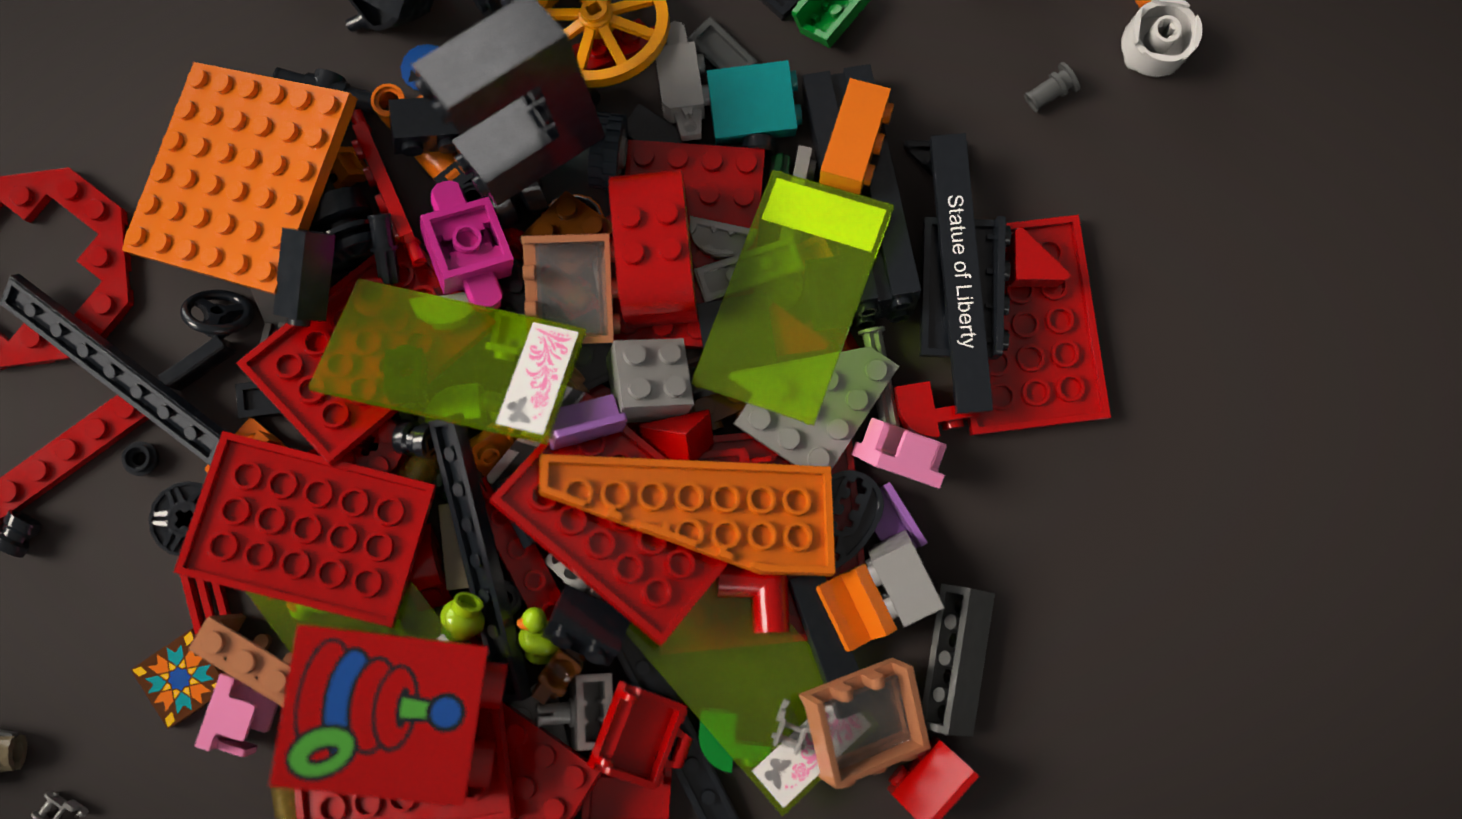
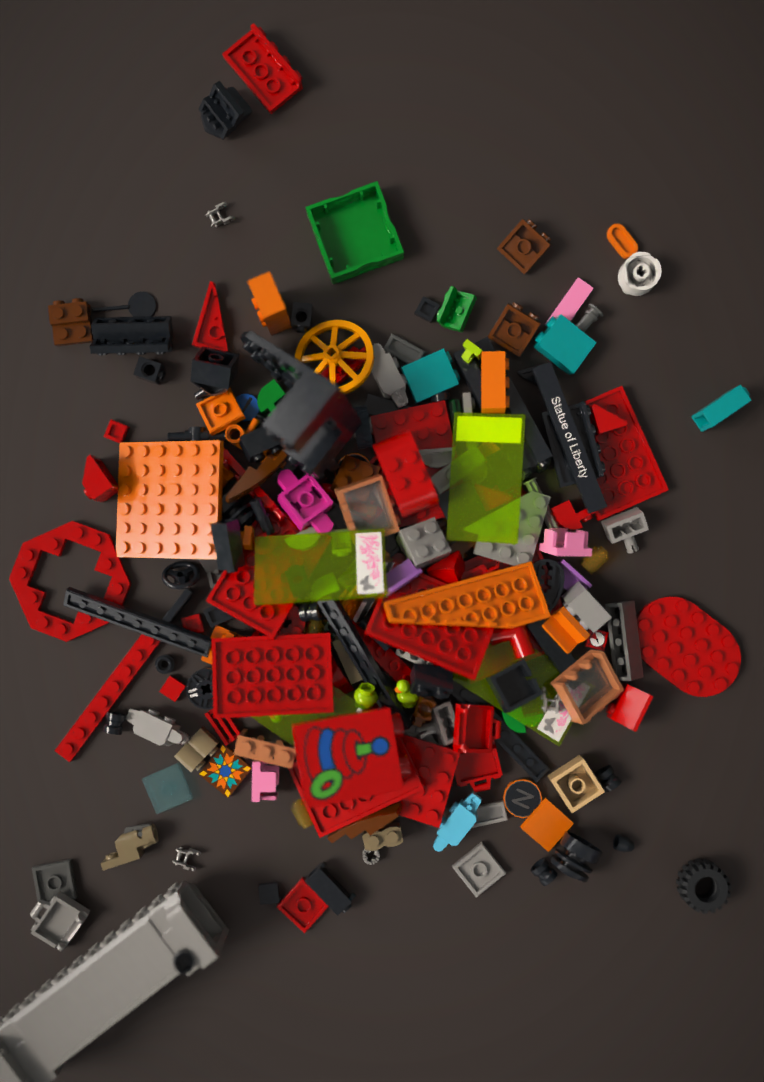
camera: 20 degrees left, 5 degrees up
(69, 679) = (167, 788): none -> clear light blue plate
(83, 565) = (156, 728): none -> light grey hinge
(130, 108) = (98, 480): none -> red slope
(136, 504) = (173, 688): none -> red tile
(143, 624) = (196, 749): none -> dark tan brick
(196, 43) = (116, 431): none -> red tile
(214, 403) = (193, 623): none -> red tile
(345, 275) = (248, 537): none -> orange tile
(379, 58) = (220, 411): none -> orange tile
(387, 178) = (254, 478): none -> reddish brown slope
(729, 680) = (511, 686): none -> black piece
(832, 77) = (471, 351): none -> lime tile
(908, 644) = (597, 640): none -> tile
(921, 67) = (514, 328): none -> reddish brown plate
(945, 502) = (596, 561): none -> clear yellow brick
(998, 115) = (564, 344): none -> teal brick
(1015, 459) = (624, 527): none -> light grey brick
(1024, 59) = (573, 300): none -> bright pink tile
(1068, 707) = (687, 646): none -> red plate
(1242, 300) = (721, 408): none -> teal brick

